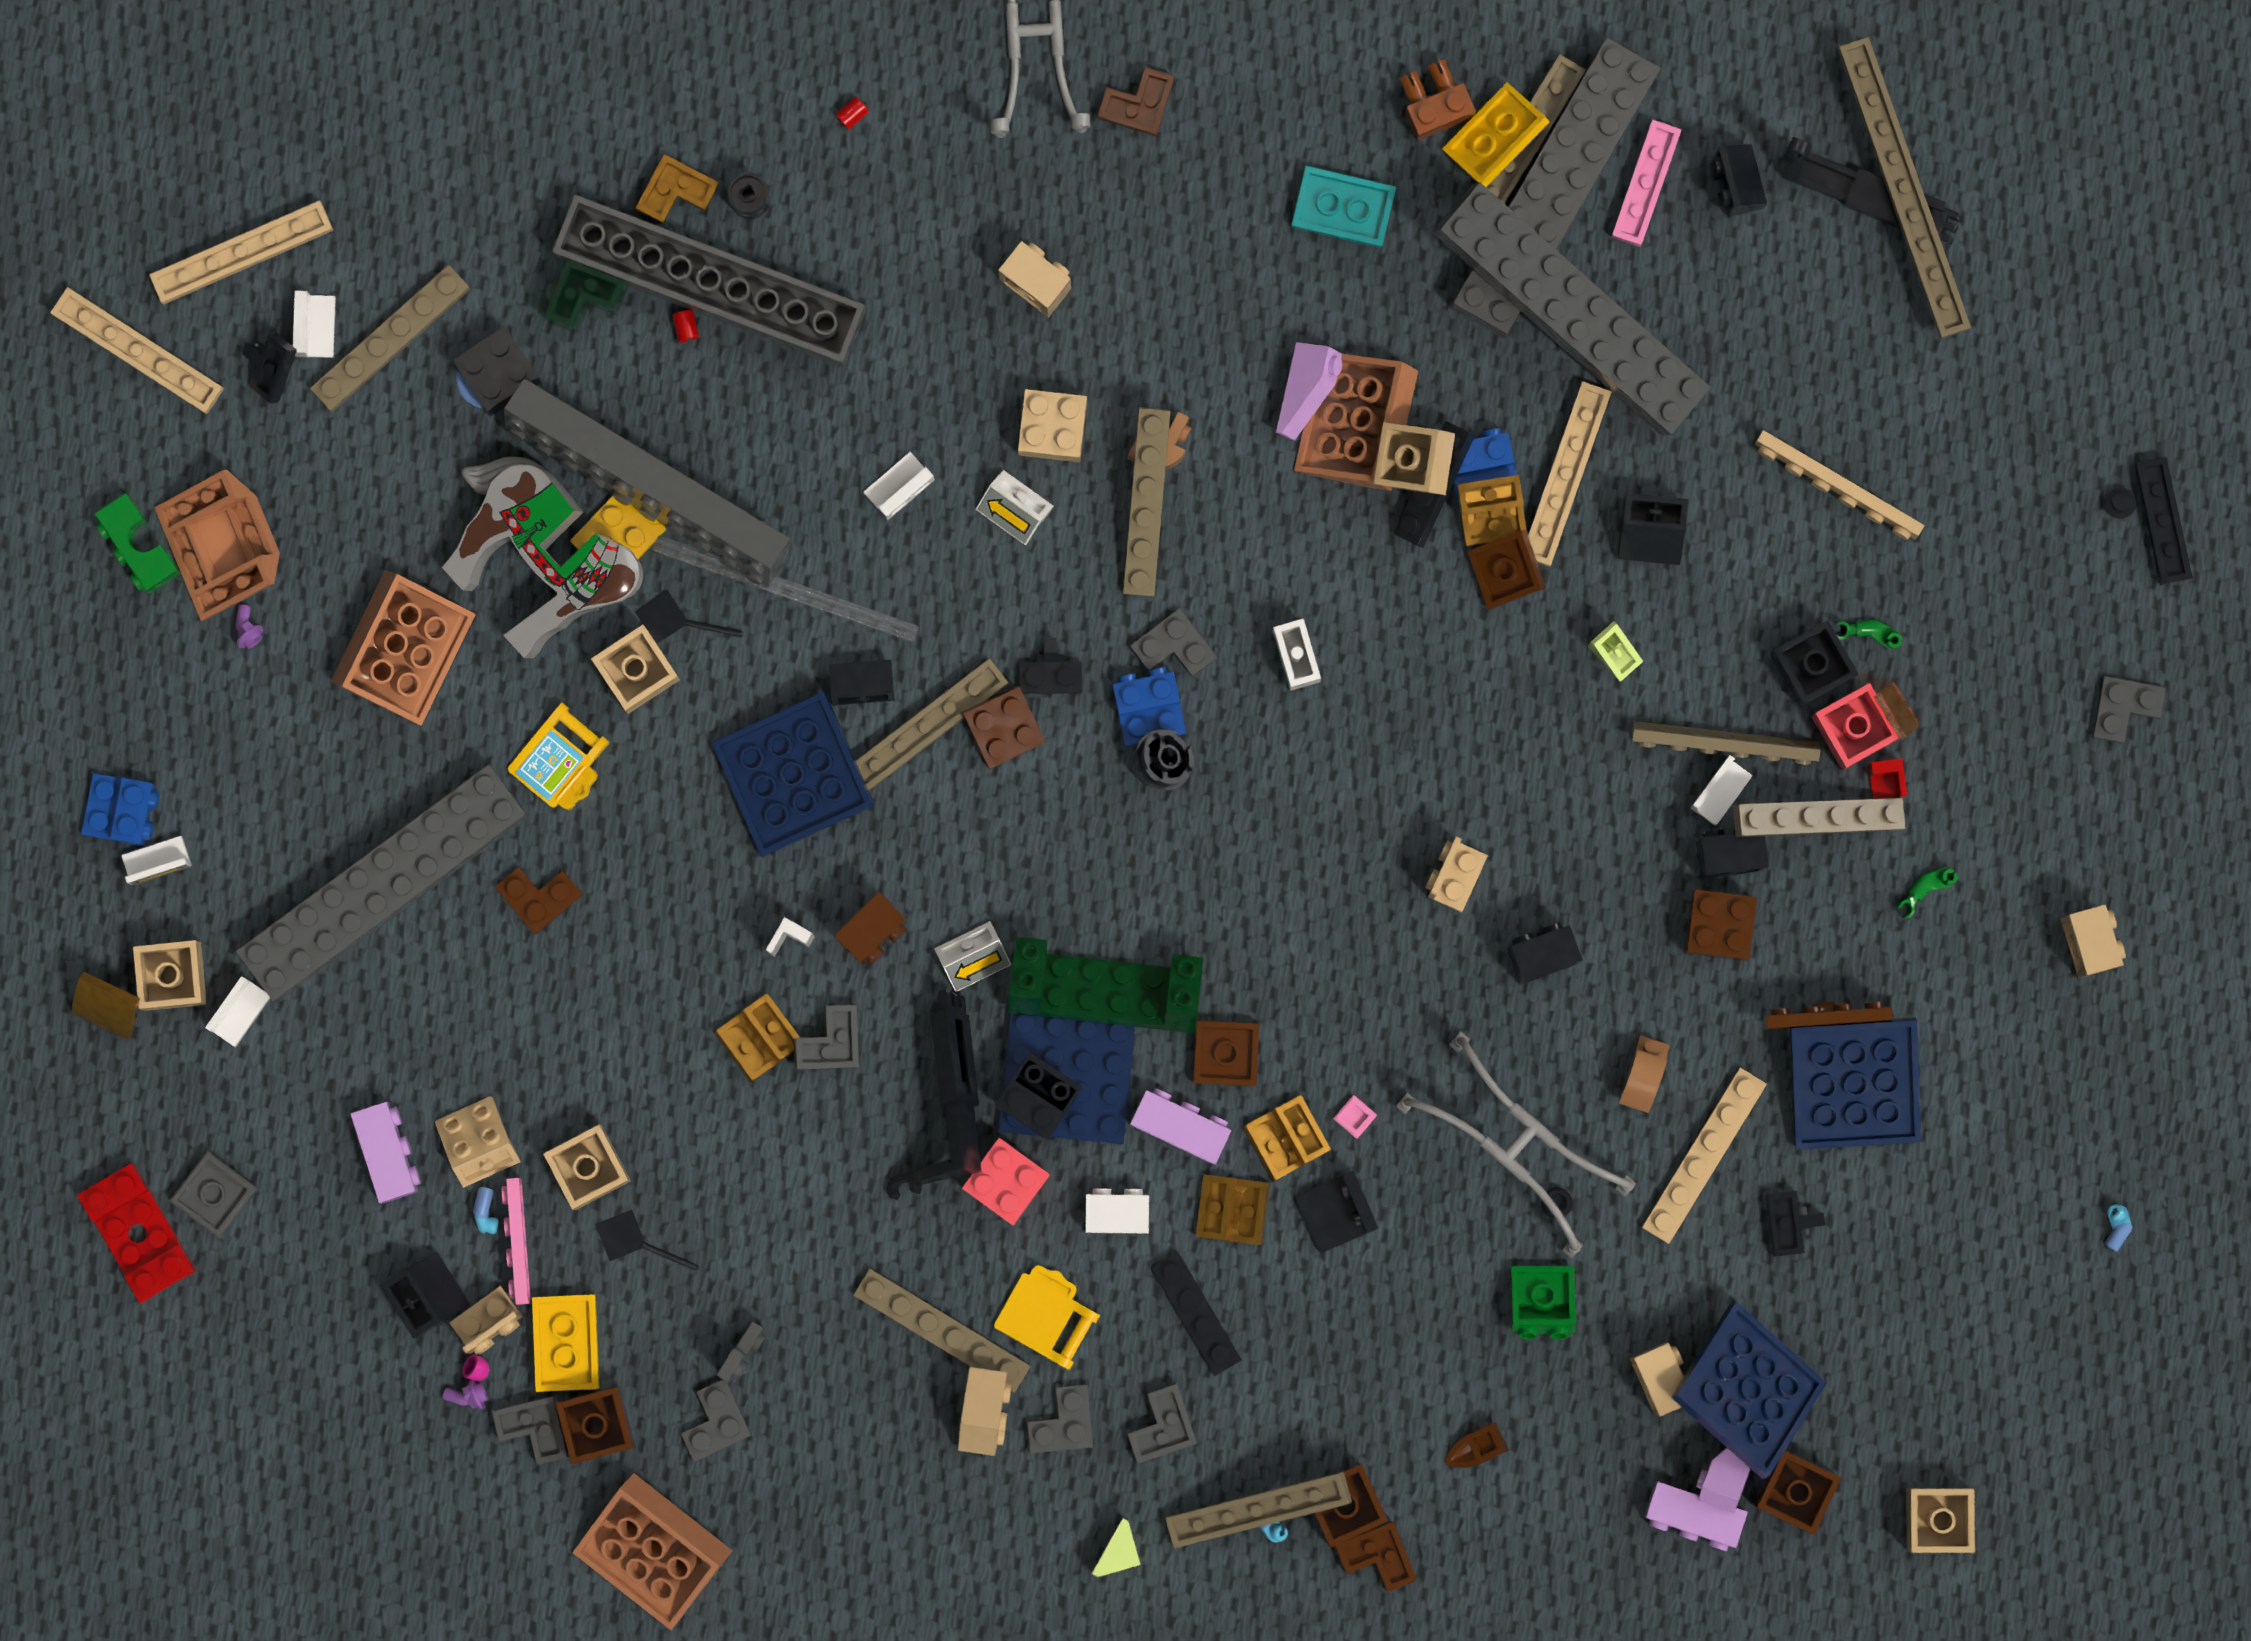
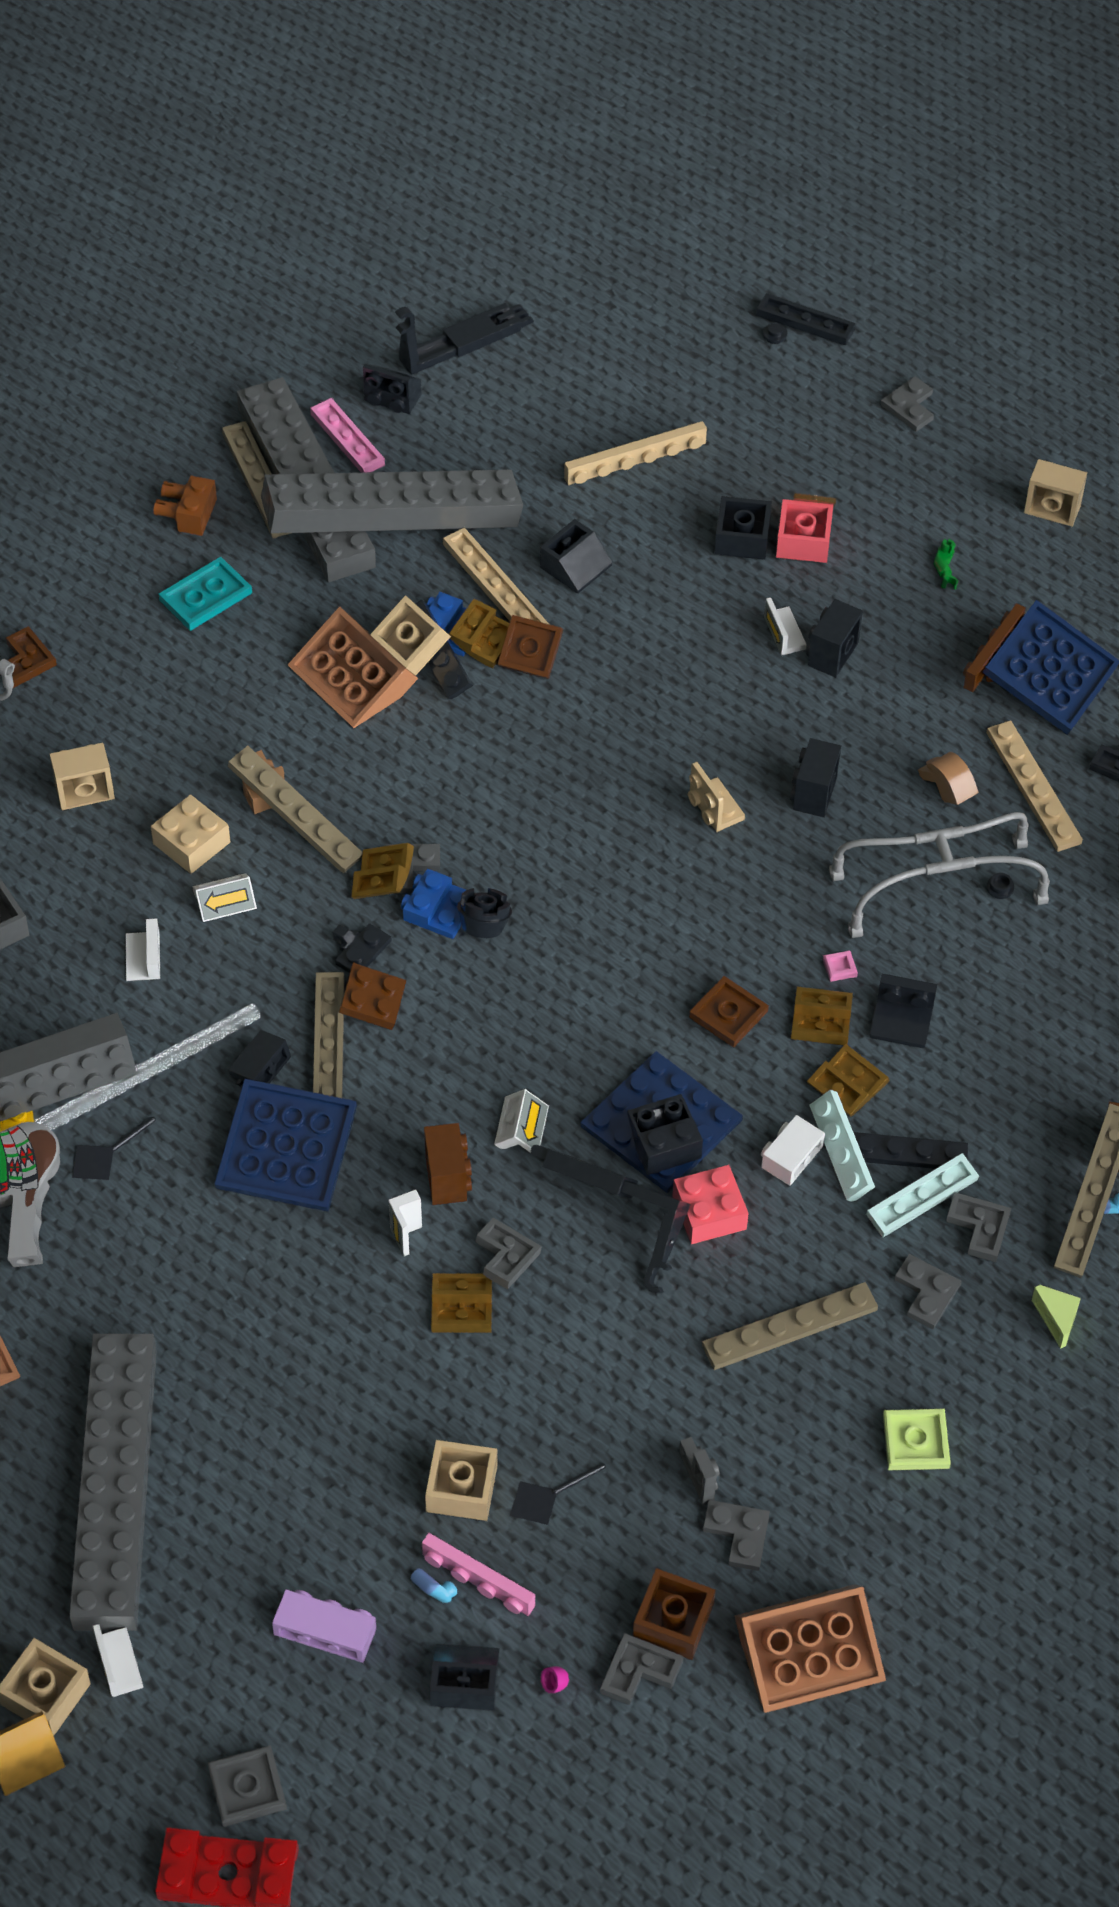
camera: 55 degrees left, 30 degrees down
(472, 1395) = (577, 1695): medium lavender plate -> none
(476, 1142) = (375, 1550): tan bracket -> none
(486, 1320) = (525, 1643): tan bracket -> none
(537, 906) = (227, 1388): reddish brown plate -> none
(554, 765) = (136, 1303): piece -> none
(565, 1343) = (588, 1597): yellow plate -> none
(635, 669) = (115, 1194): tan brick -> none
(908, 1511) = (916, 1439): none -> yellowish green plate
(982, 1415) = (881, 1325): tan brick -> none
(1040, 1312) = (828, 1252): yellow piece -> none
(1105, 989) = (661, 1015): dark green plate -> none
(1141, 633) = (382, 870): none -> pearl gold slope
(1154, 1252) = (842, 1146): none -> light aqua plate
(1154, 1357) = (922, 1195): none -> light aqua plate
(1181, 1125) = (760, 1070): lavender brick -> none
(1296, 654) = (481, 792): white brick -> none
(1308, 384) = (302, 674): lavender slope -> none
(1496, 135) = (239, 484): yellow plate -> none
(1543, 1301) = (1068, 932): green plate -> none
(1615, 651) = (637, 626): yellowish green slope -> none
(1720, 925) = (878, 677): reddish brown brick -> none
(1737, 744) = (747, 612): dark tan plate -> none
(1819, 817) = (850, 574): plate -> none
(1875, 629) = (754, 490): green arm -> none
(1887, 779) = (854, 538): red panel -> none
(1904, 188) = (478, 310): dark tan plate -> none

